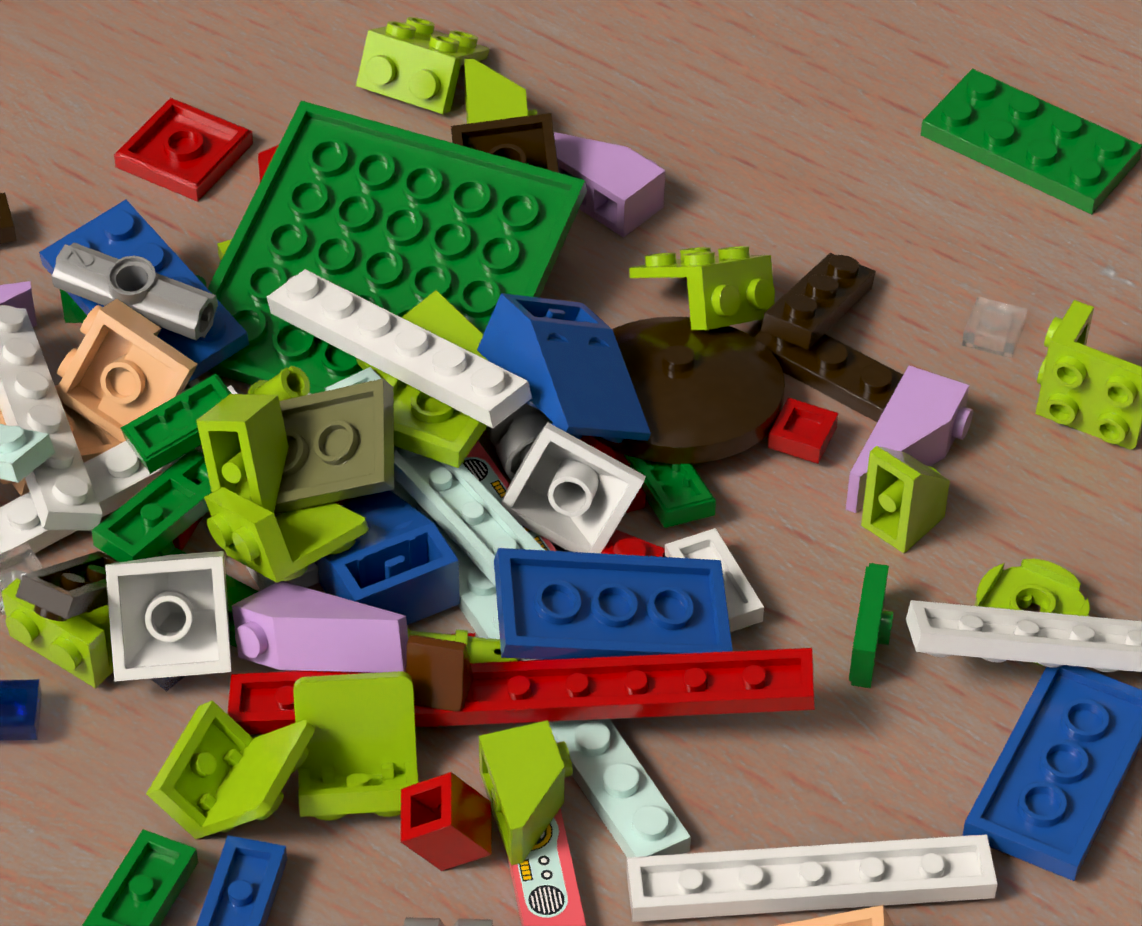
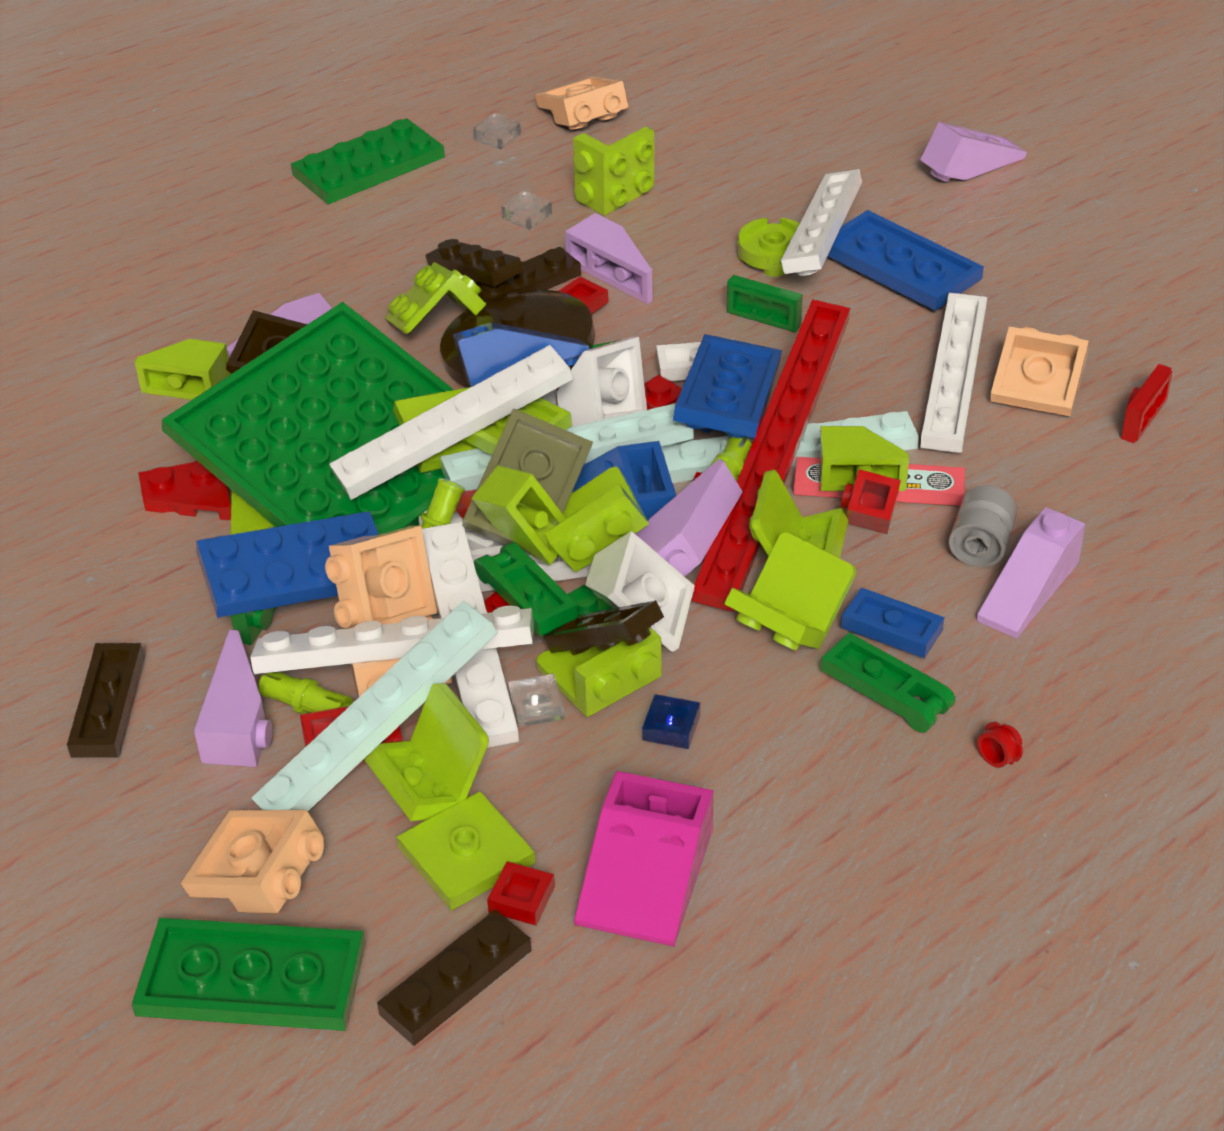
camera: 70 degrees left, 5 degrees down
(137, 285) = (309, 545): light grey piece -> none
(172, 427) = (462, 548): green plate -> none
(183, 149) = (100, 544): red tile -> none
(416, 62) = (106, 396): lime bracket -> none
(439, 672) = (755, 461): reddish brown slope -> none
(902, 498) = (672, 262): lime slope -> none

